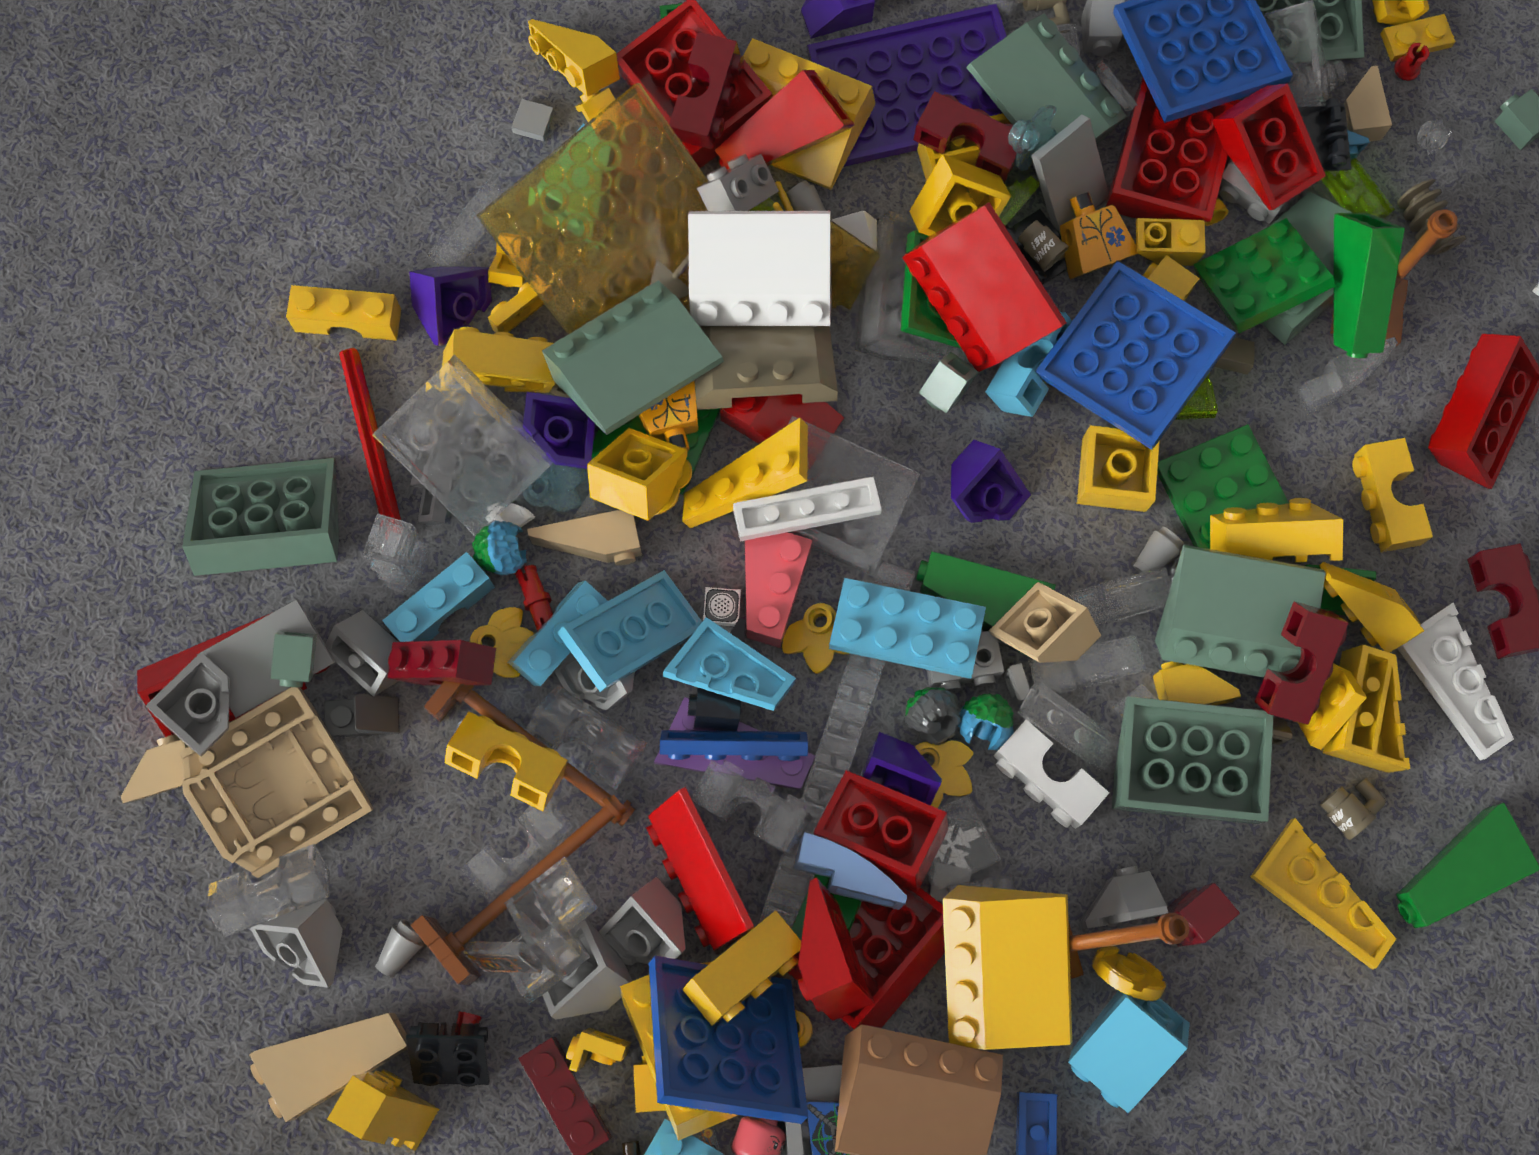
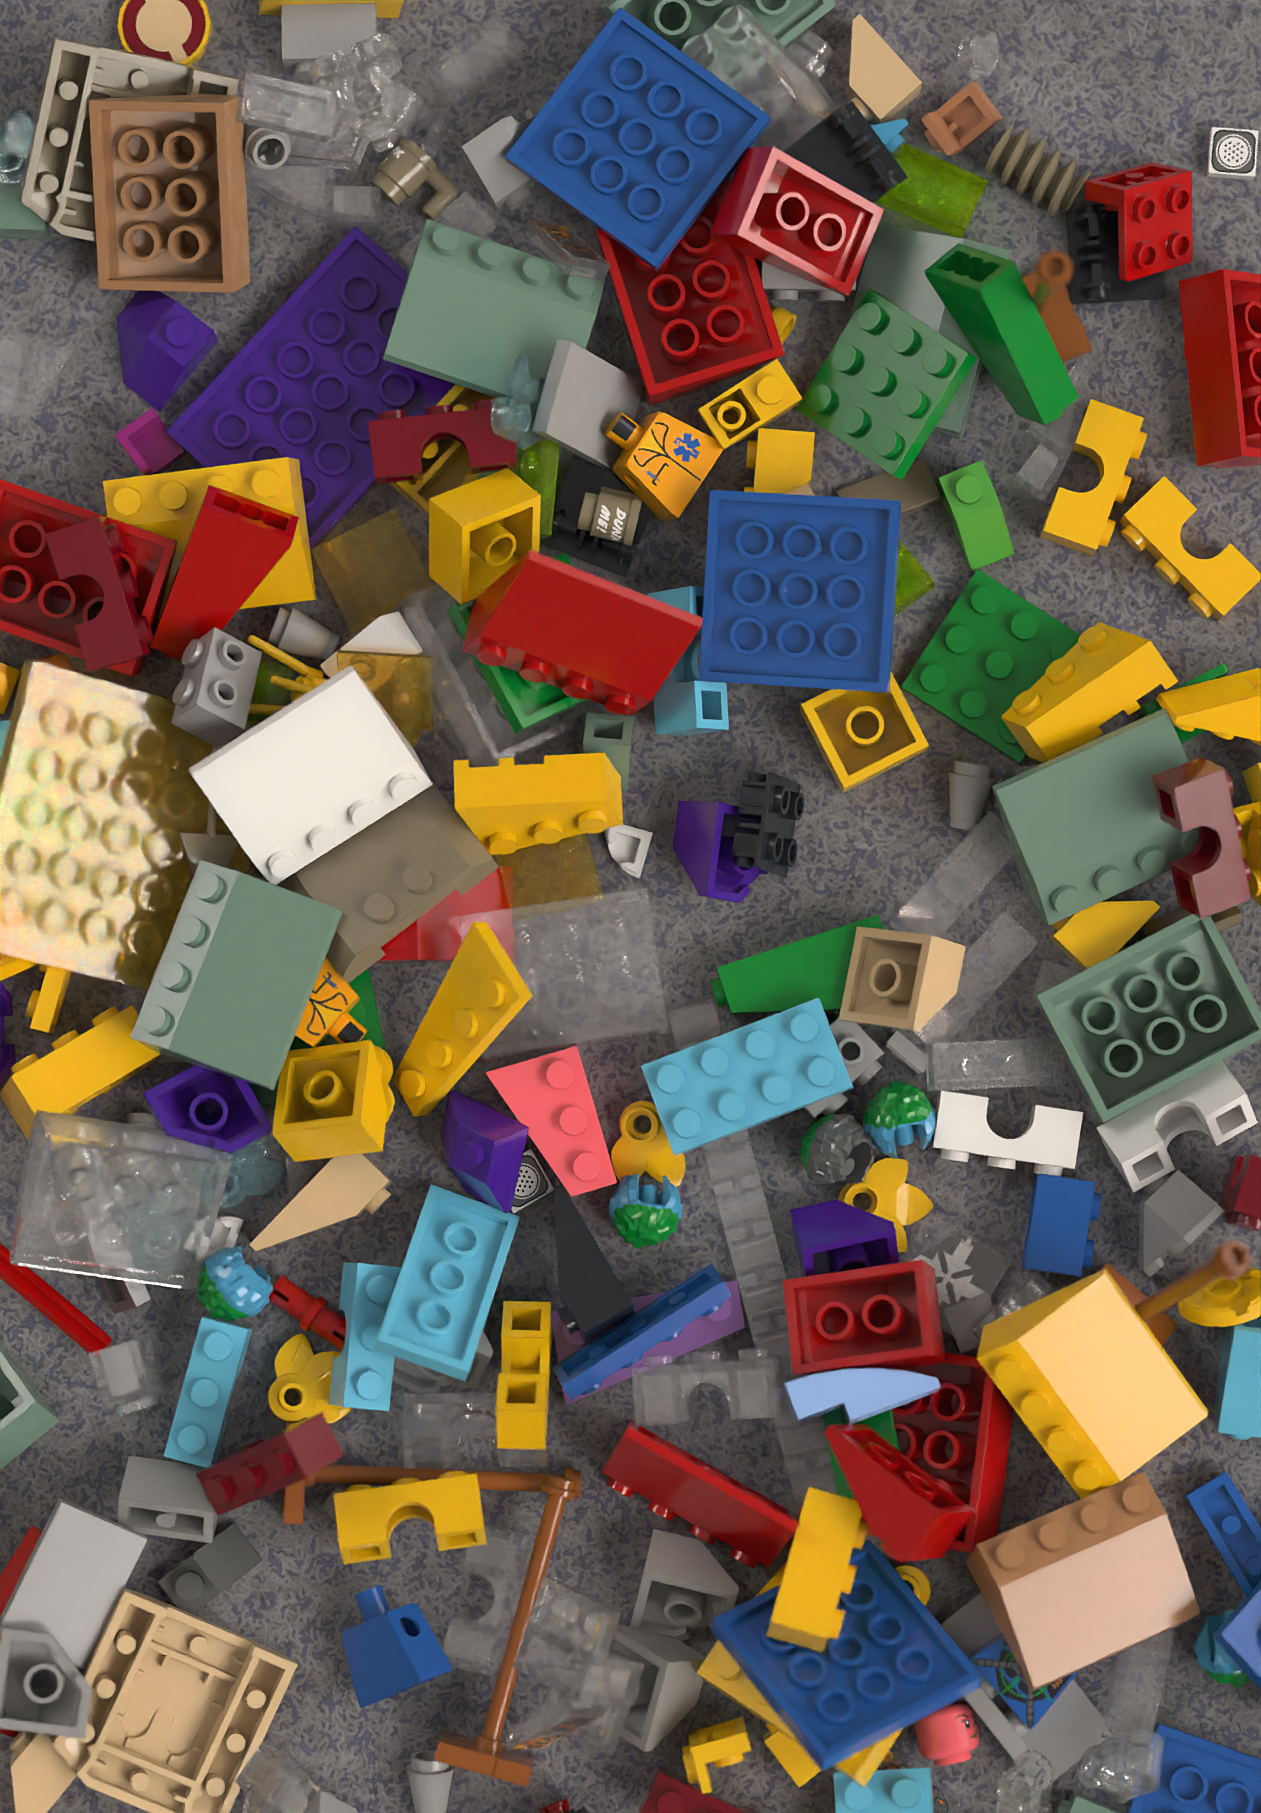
camera: 25 degrees left, 10 degrees up
(293, 658) = (106, 1566): sand green brick -> none
(436, 839) = (390, 1649): none -> blue torso
(638, 724) = (524, 1375): none -> yellow arch
(710, 569) = (483, 1149): none -> dark purple slope
(729, 667) = (583, 1256): medium azure wing -> none
(780, 655) = (644, 1216): none -> piece
(793, 37) = (149, 444): none -> magenta panel
(807, 508) = (549, 1020): white plate -> none
(869, 422) = (550, 872): none -> clear yellow hinge
(876, 188) = (371, 569): none -> clear yellow hinge
(886, 378) = (538, 803): none -> yellow wedge
(923, 450) = (628, 847): none -> white tile
(1023, 486) = (782, 805): none -> black hinge
(1048, 856) = (1060, 1224): none -> blue brick
(1193, 840) = (1205, 1102): none -> white arch
(1268, 390) = (975, 515): none -> bright green slope
(1378, 399) = (1110, 440): none -> yellow arch
(1400, 165) = (961, 120): none -> nougat bracket
(1447, 298) = (1095, 261): none -> black hinge
(1488, 286) = (1152, 216): none -> red bracket

